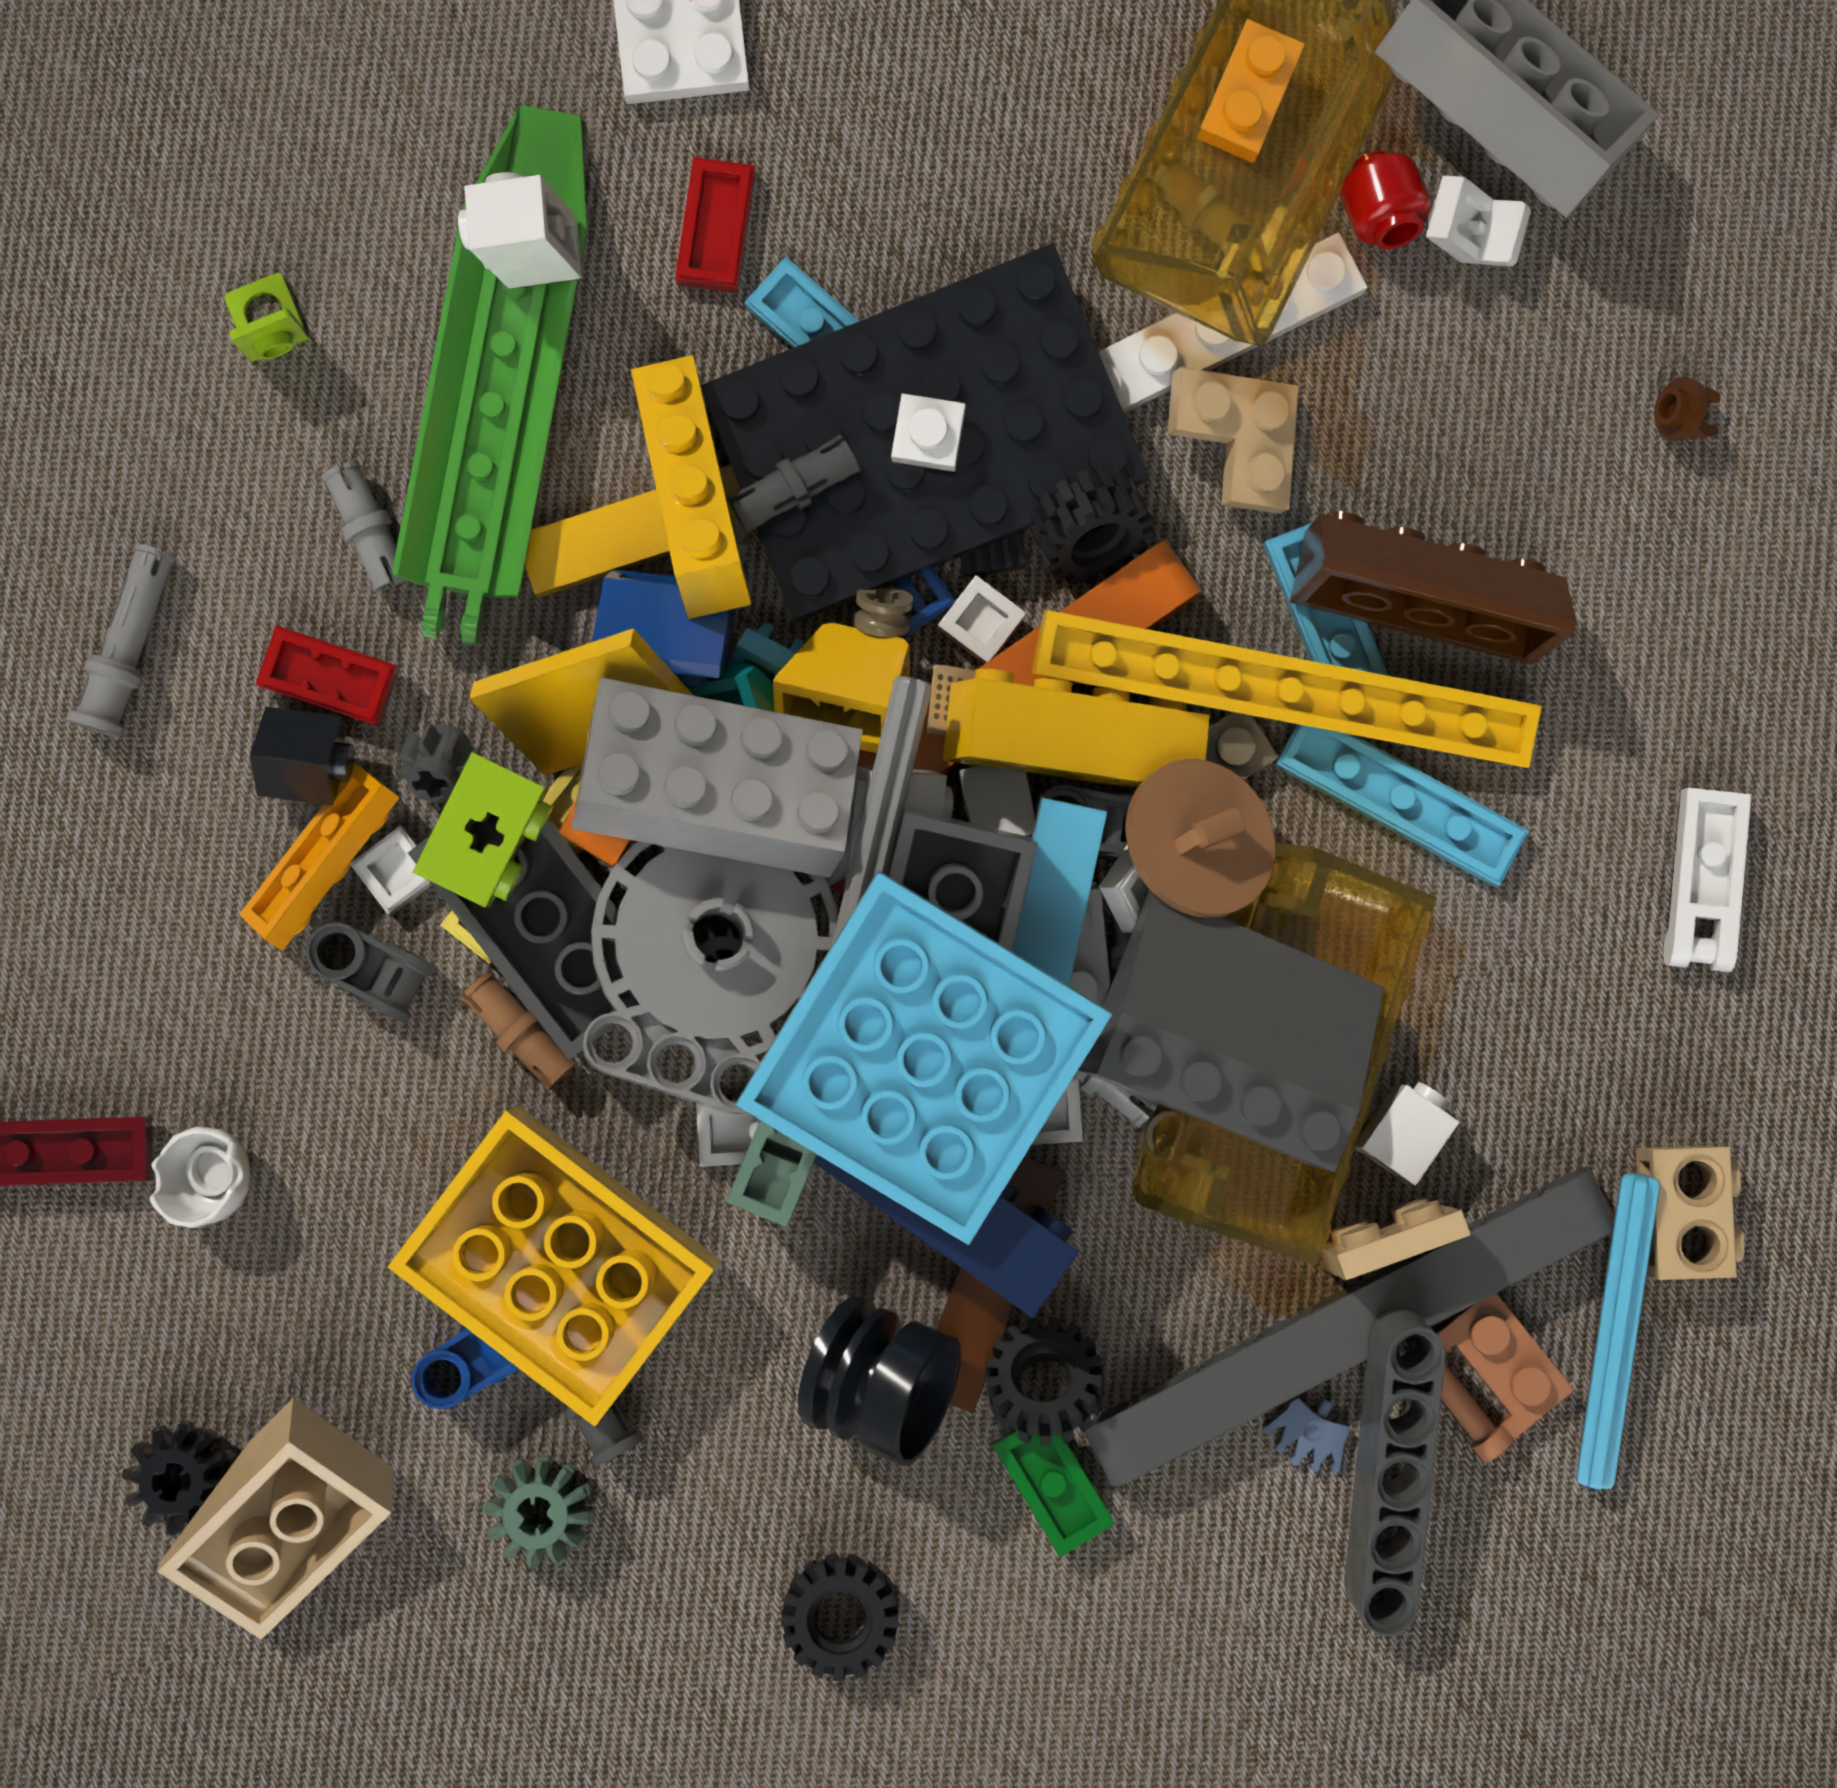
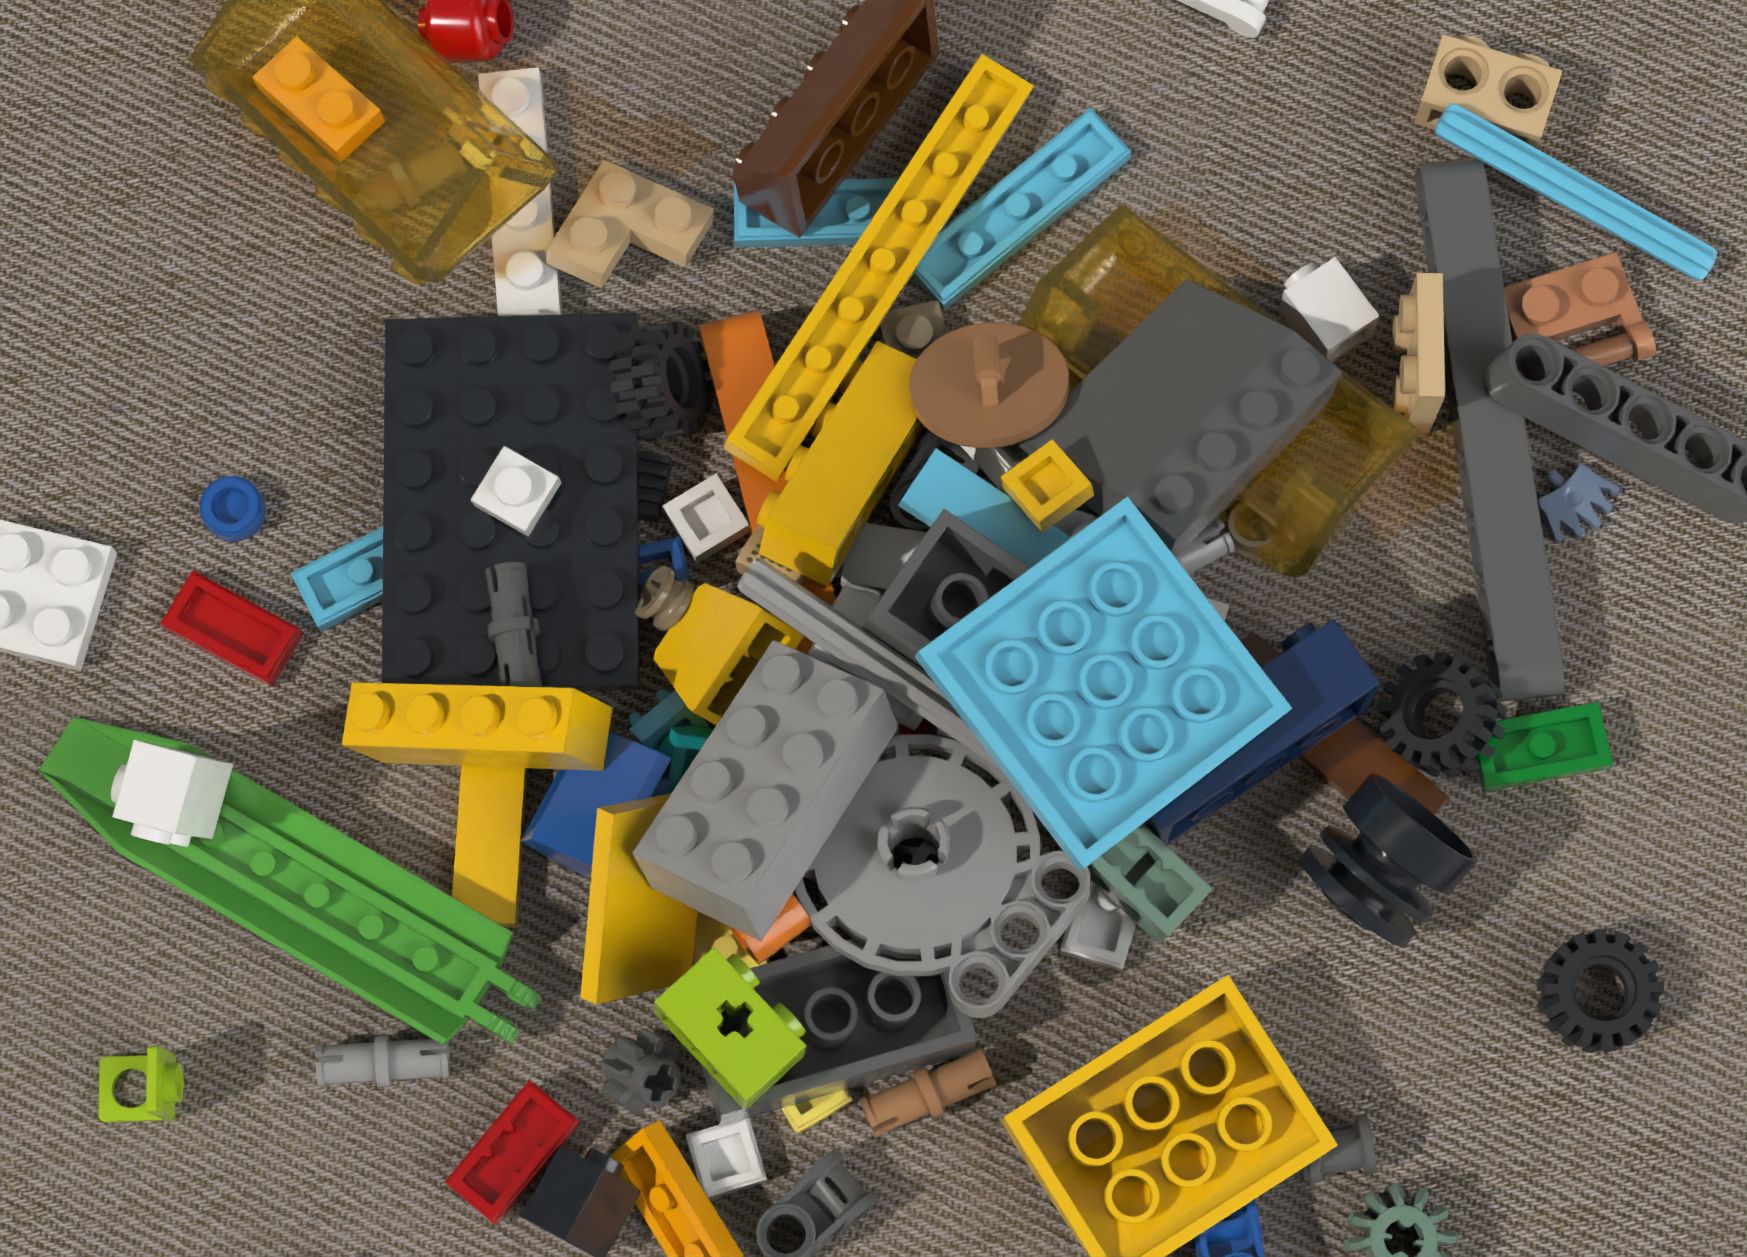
camera: 60 degrees left, 10 degrees down
(828, 178) = (232, 508): none -> blue tile
(1108, 932) = (1047, 486): none -> yellow plate

